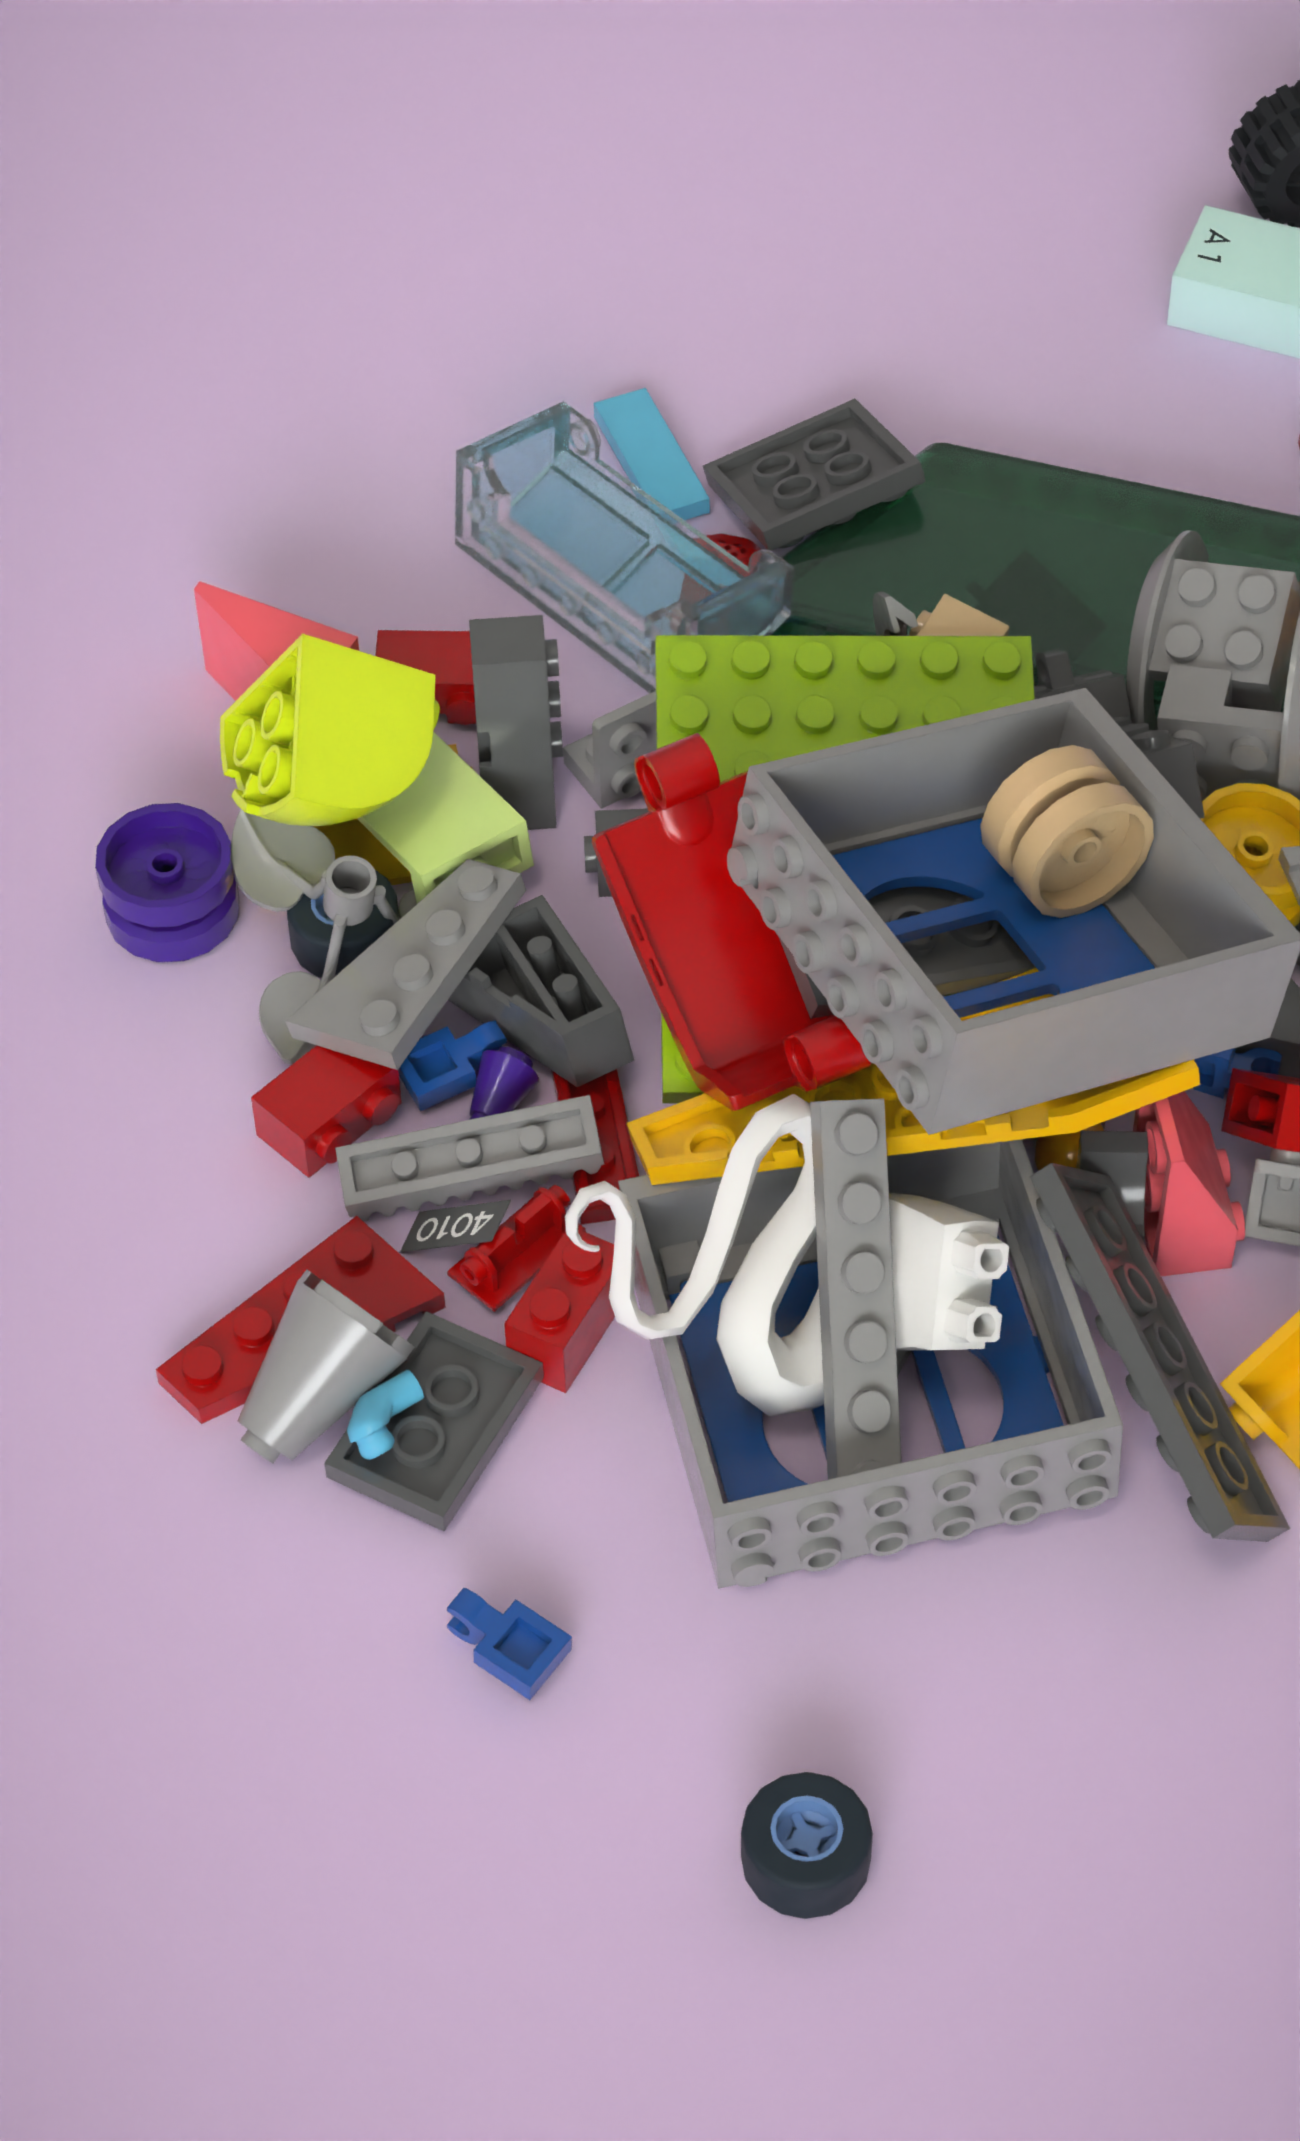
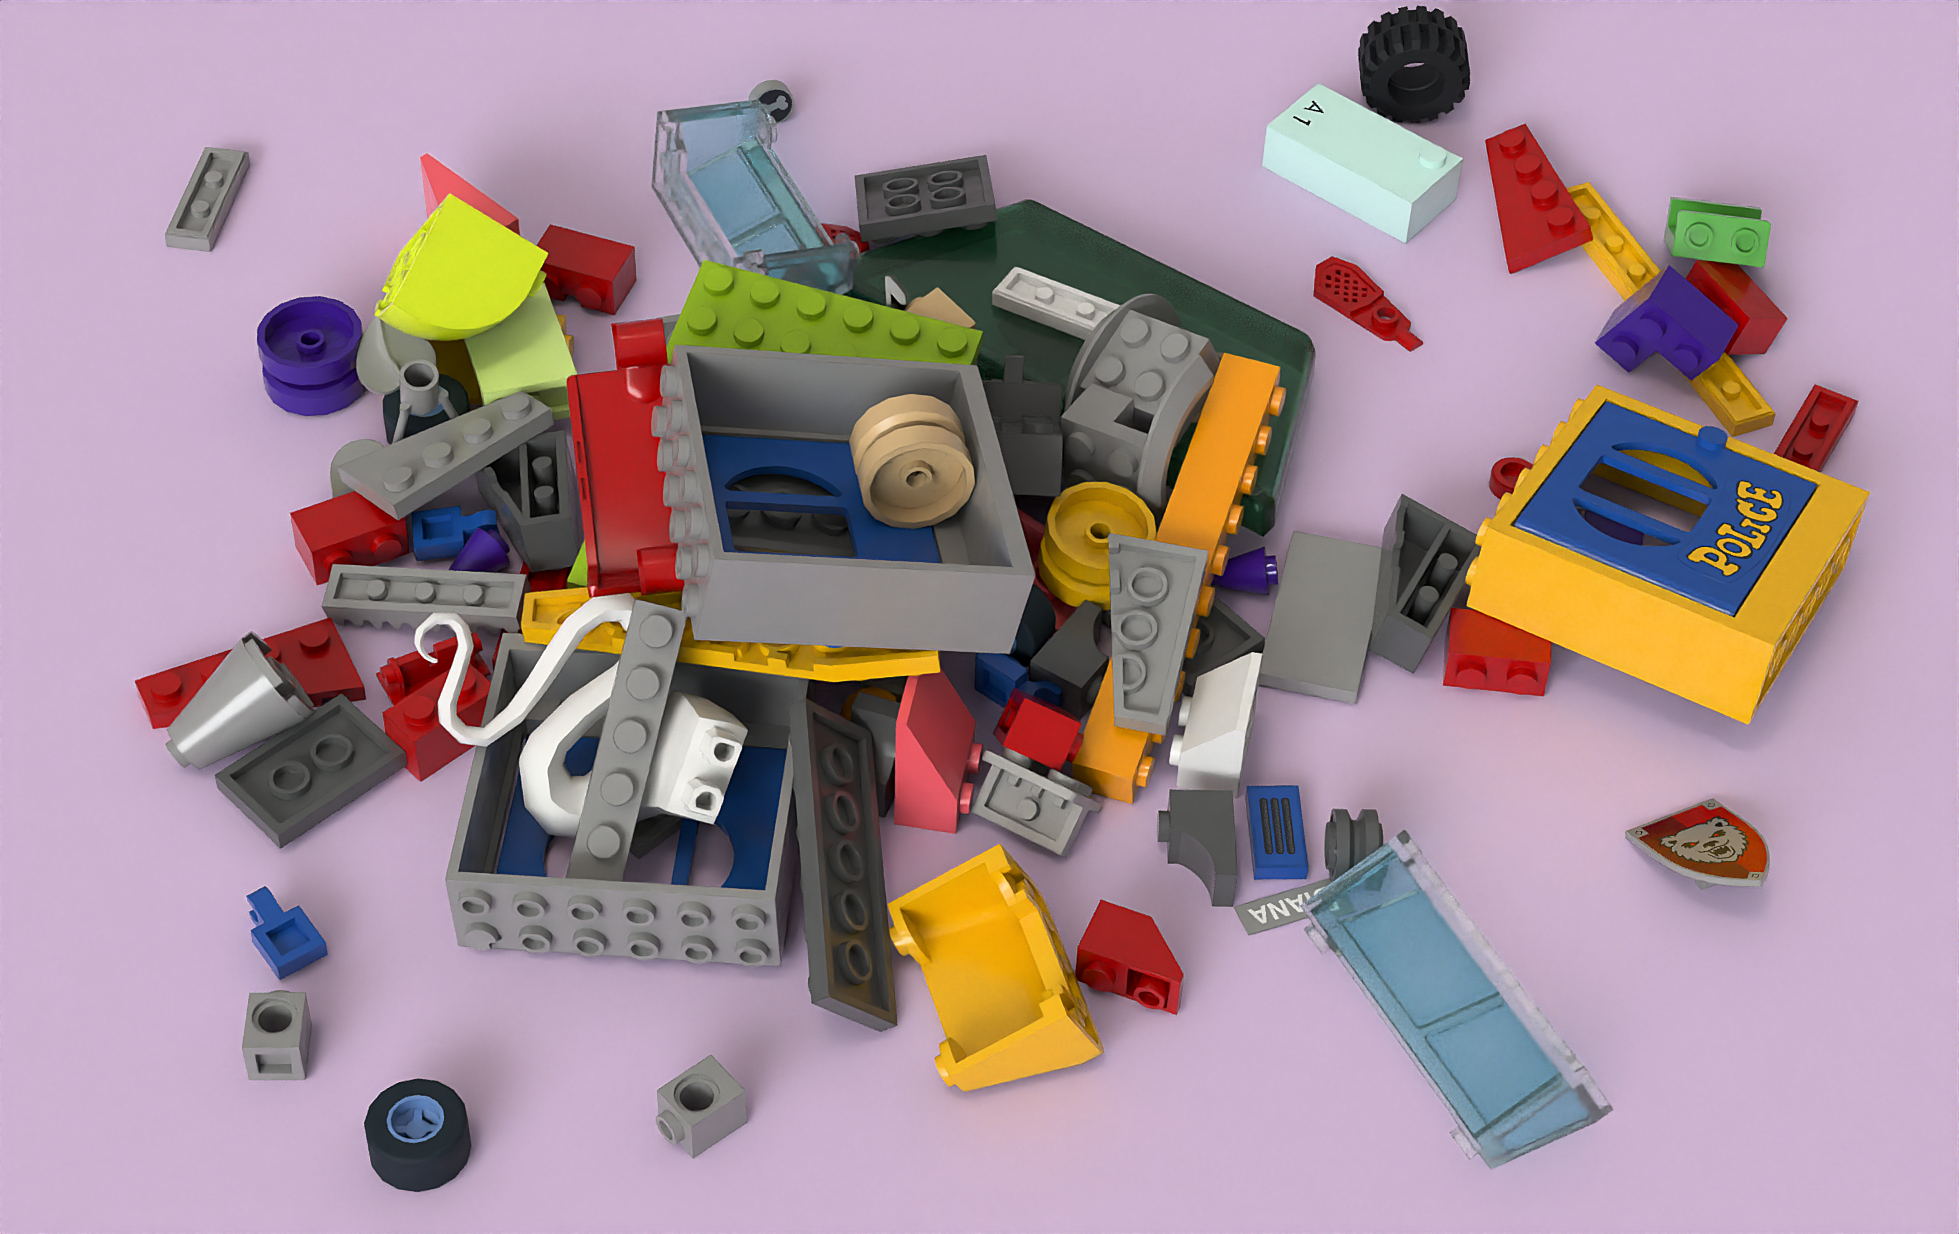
camera: 15 degrees right, 5 degrees down
(375, 1409) = (267, 745): medium azure arm -> none
(455, 1226) = (391, 643): dark grey sticker -> none
(515, 712) = (607, 289): dark grey wedge -> none
(553, 388) = (775, 99): none -> tile
(577, 1798) = (274, 1053): none -> light grey brick
(651, 453) = (823, 161): medium azure tile -> none
(1056, 572) = (1051, 302): none -> white tile
(1125, 1677) = (705, 1087): none -> light grey brick

